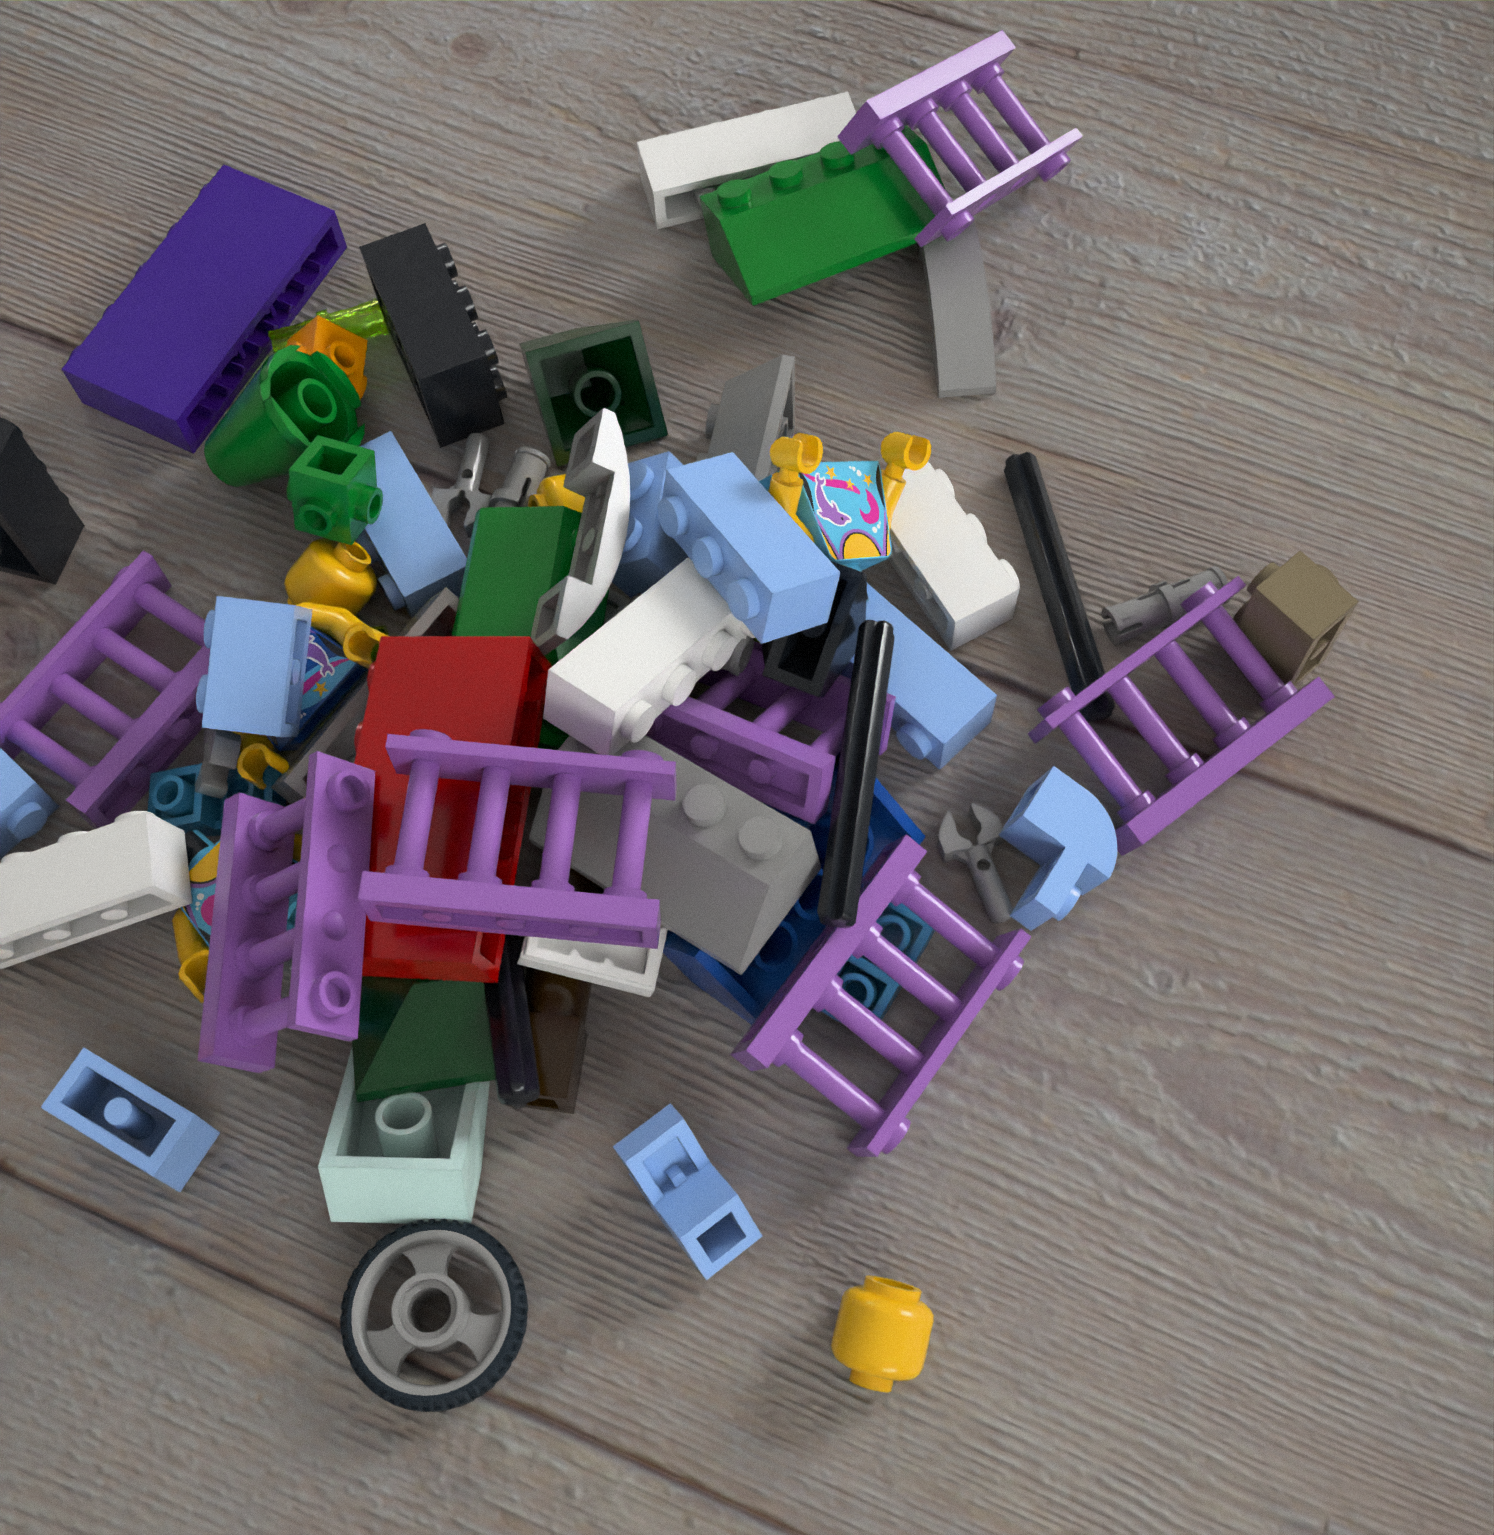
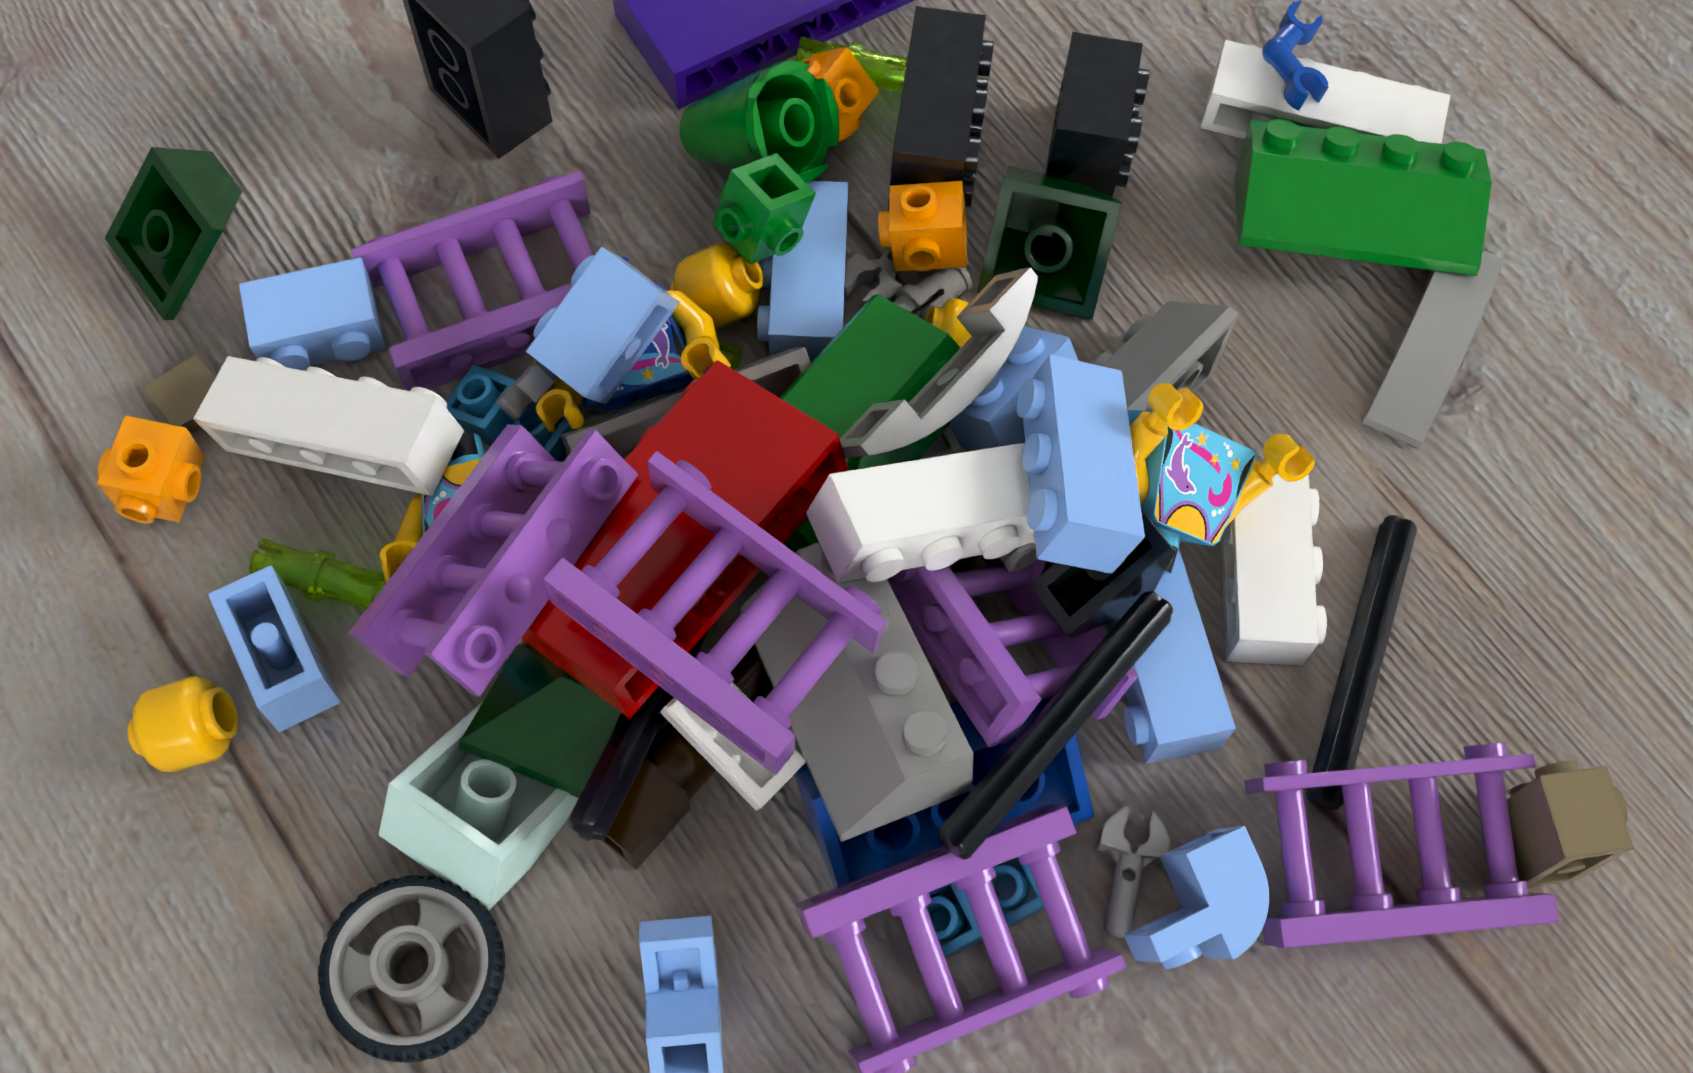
camera: 25 degrees right, 0 degrees up
(86, 1238) = (182, 724): none -> yellow head
(131, 1035) = (319, 574): none -> clear neon green pin
(482, 431) = (925, 226): none -> light orange brick
(566, 257) = (1096, 112): none -> black brick
(686, 128) = (1279, 54): none -> blue arm
(949, 86) = (1545, 141): medium lavender fence -> none
(1157, 607) = (1445, 735): light grey pin -> none

